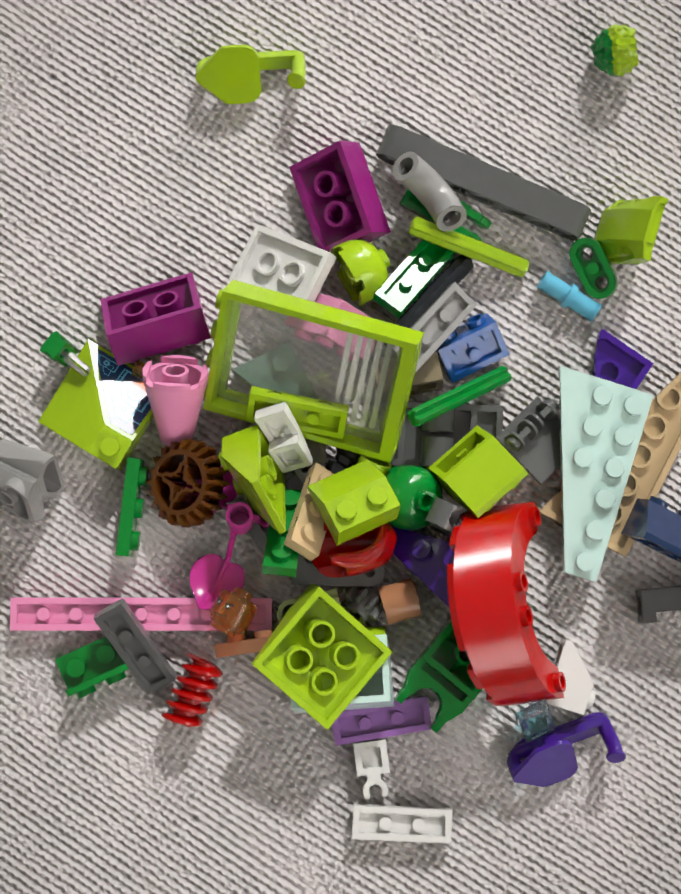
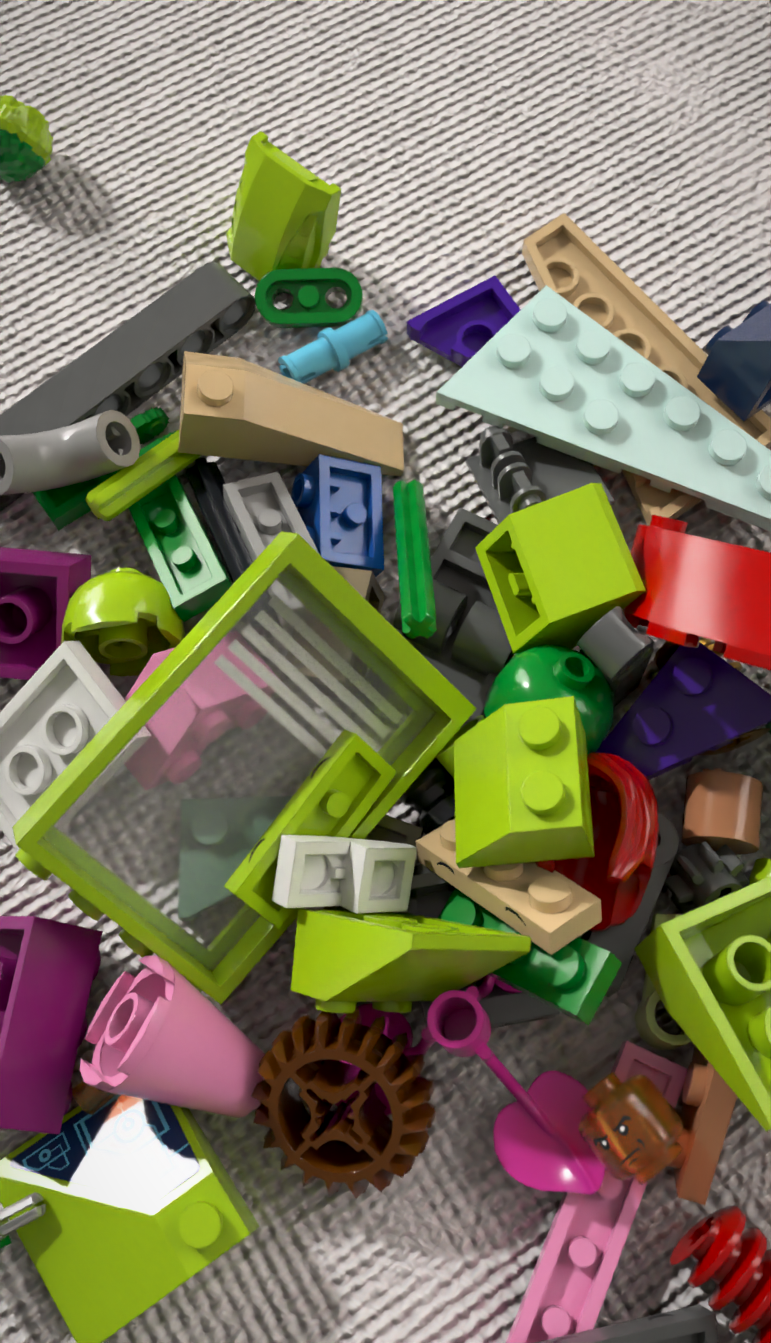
camera: 60 degrees left, 15 degrees down
(131, 507) = (340, 1239): green plate -> none
(509, 284) = (266, 417): none -> tan wedge

